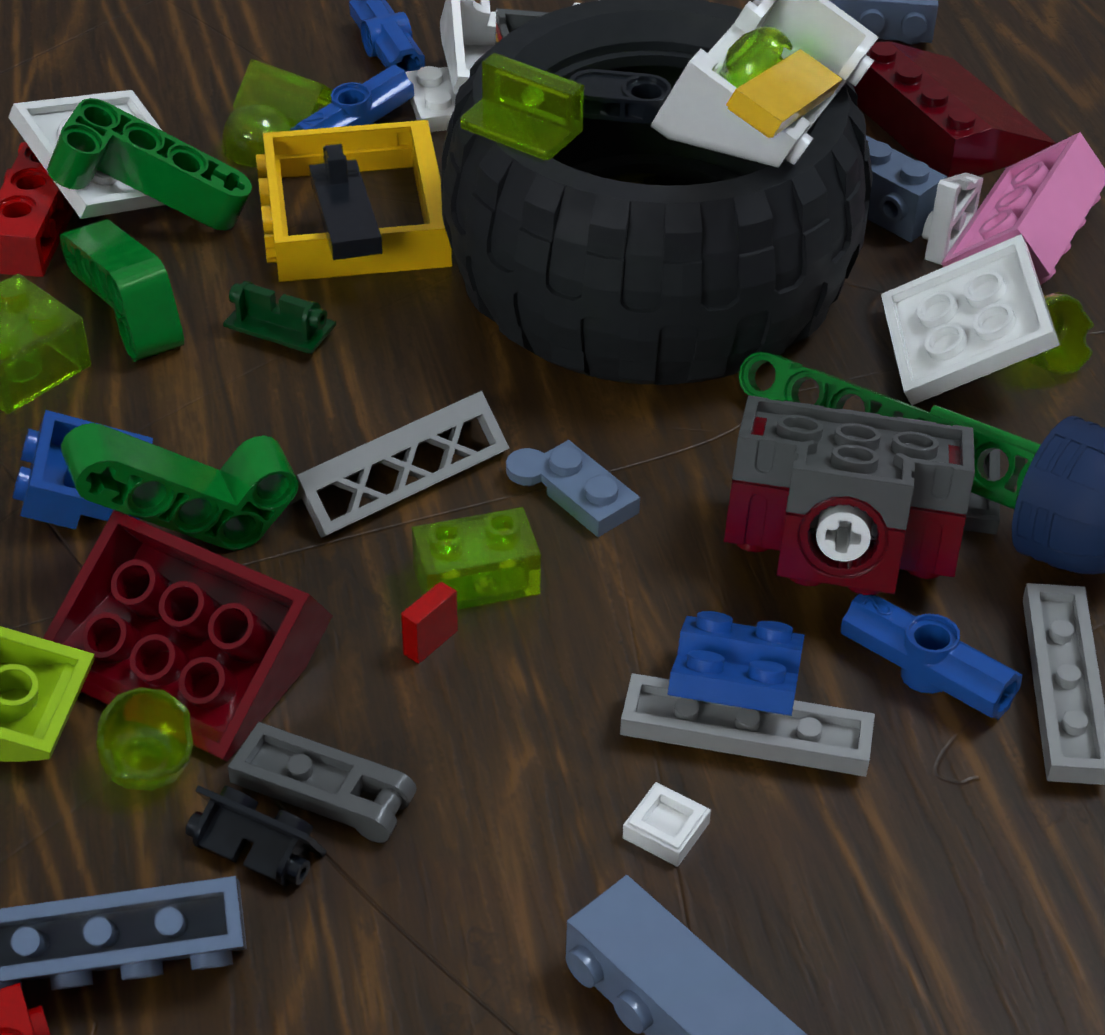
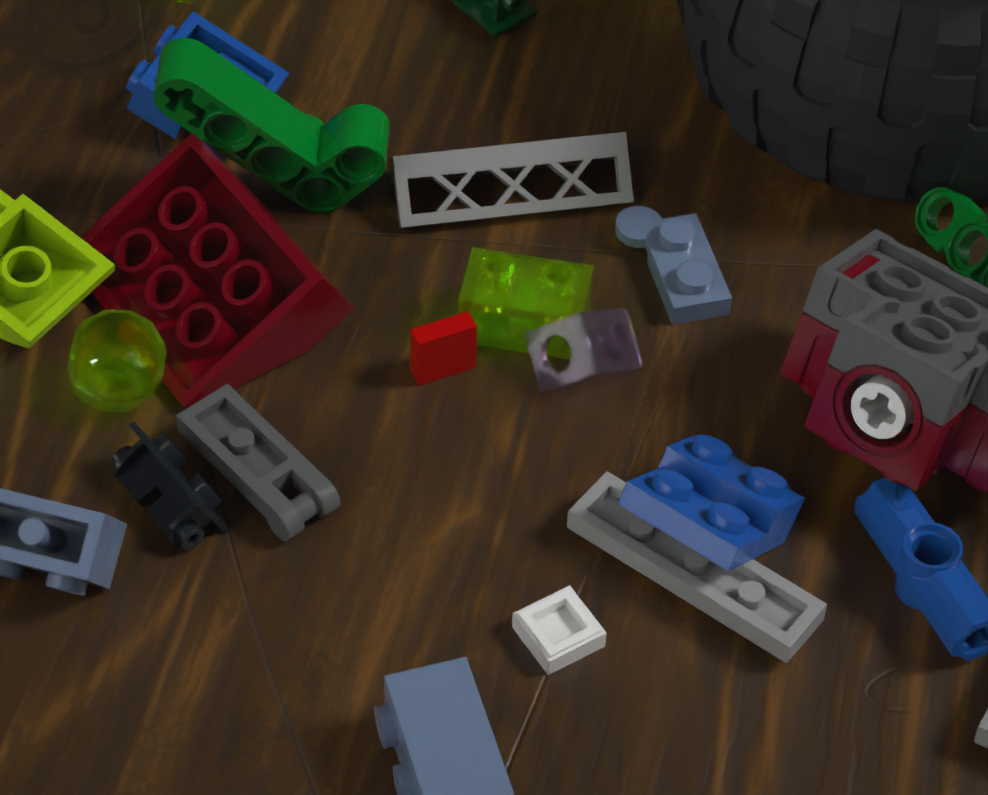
camera: 25 degrees right, 5 degrees up
(561, 569) = (598, 342): none -> bracket

